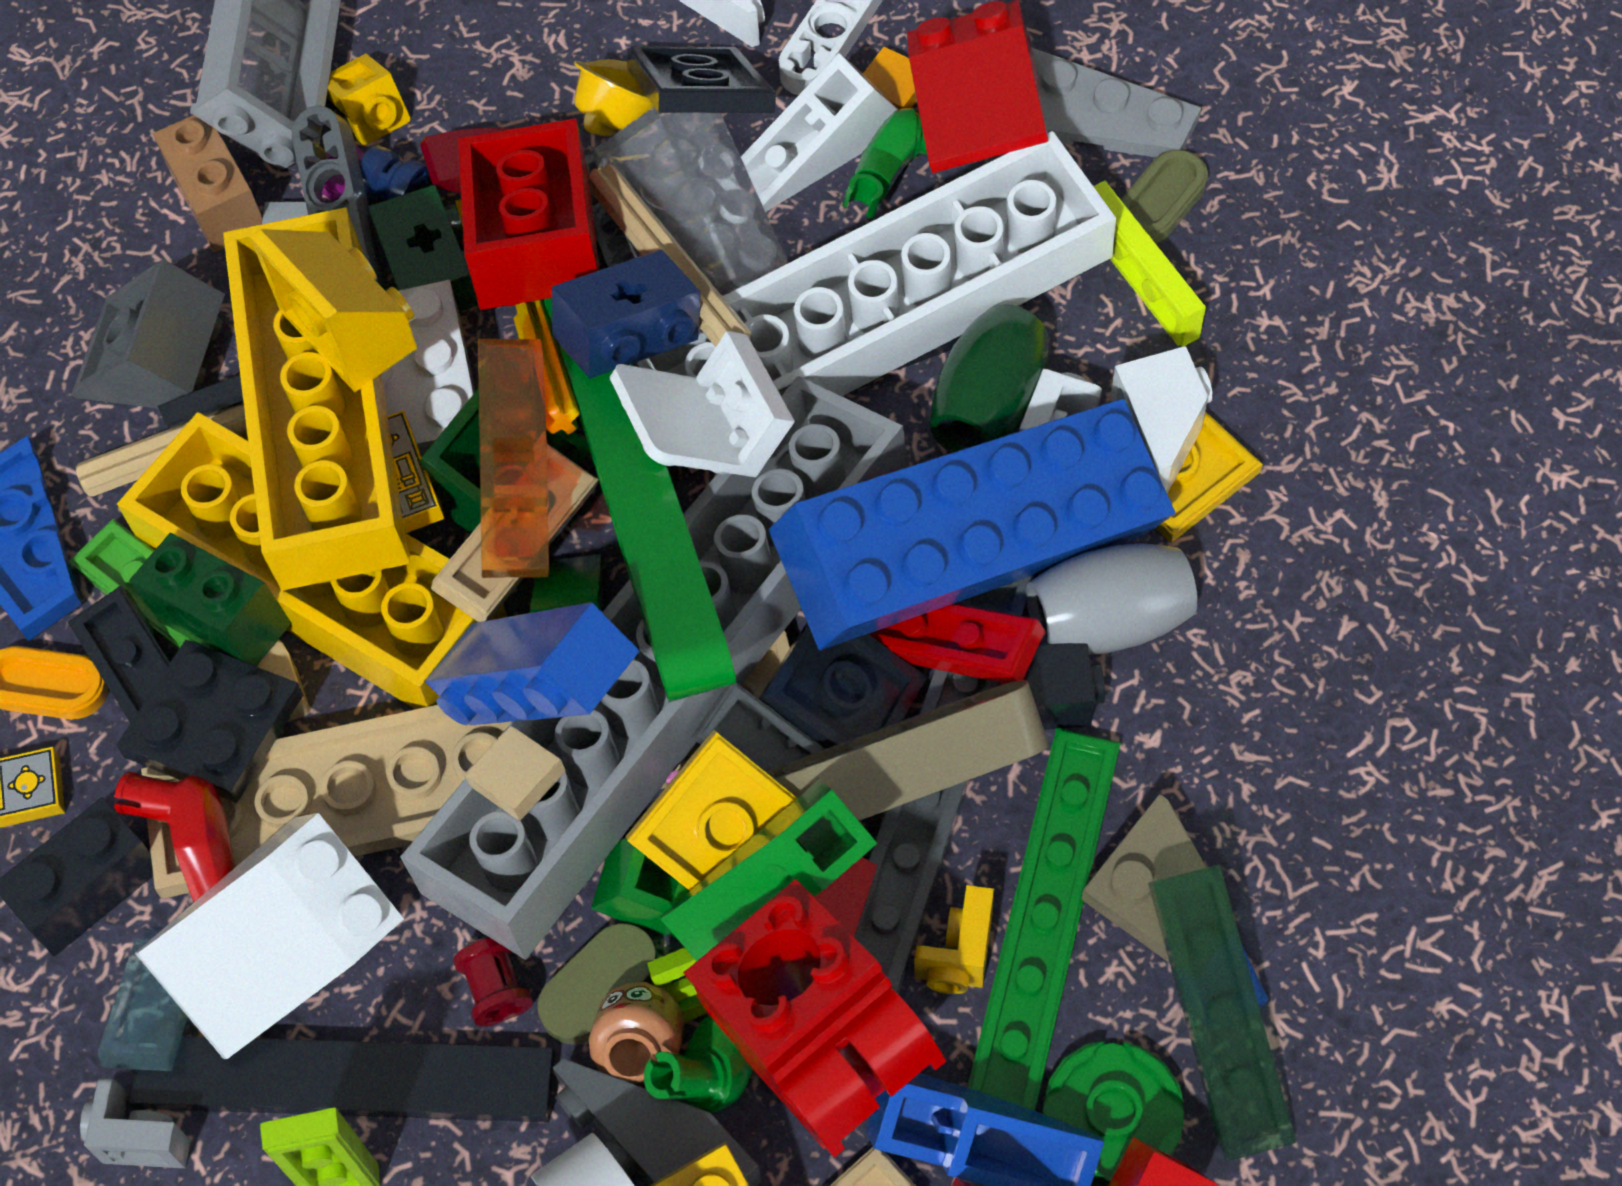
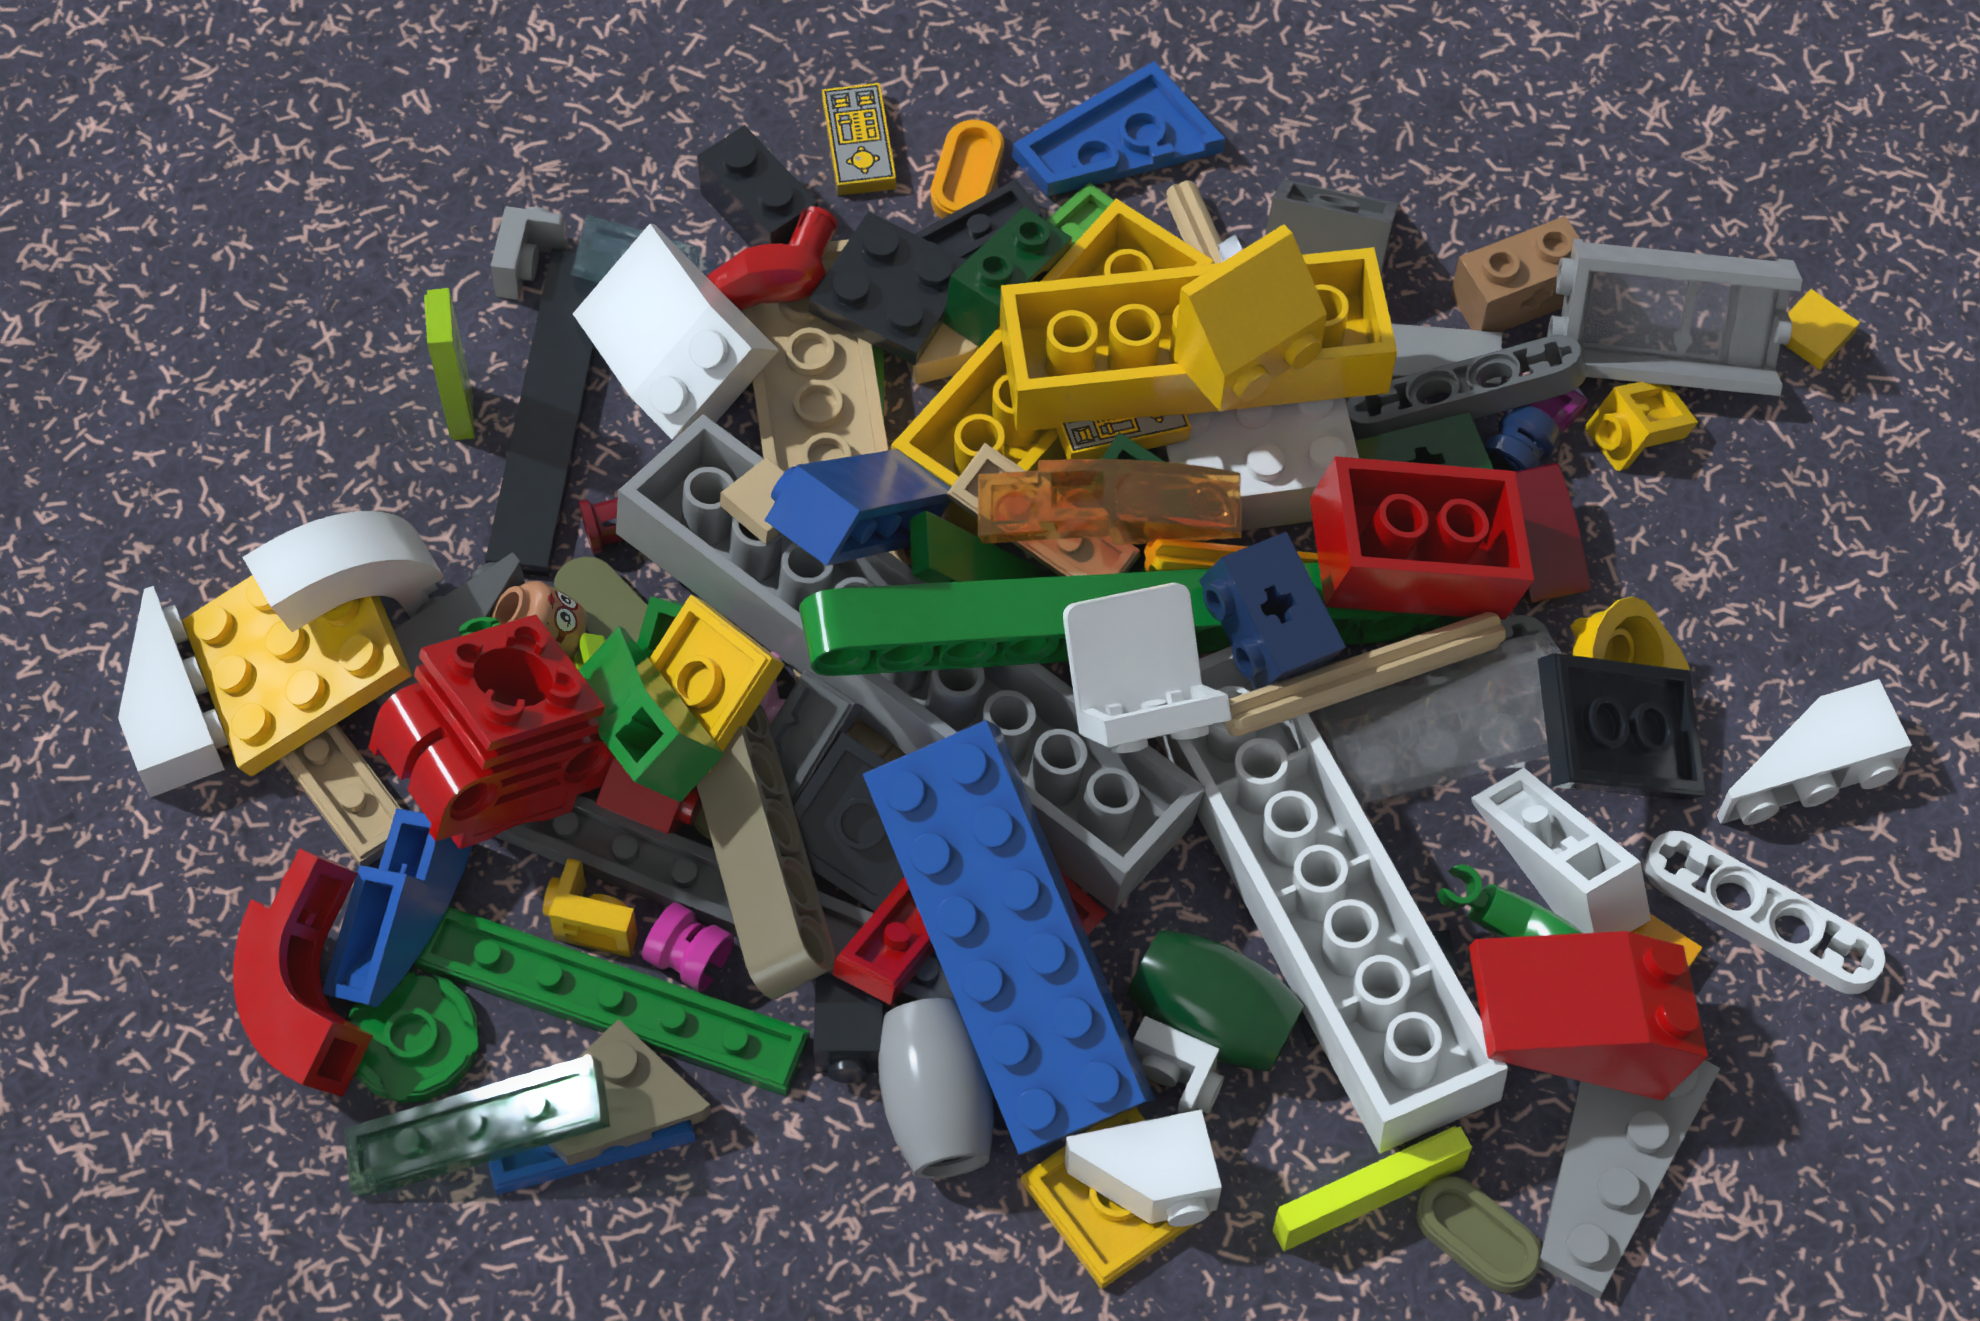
camera: 90 degrees right, 0 degrees up
(987, 843) = (687, 946): none -> dark pink wheel

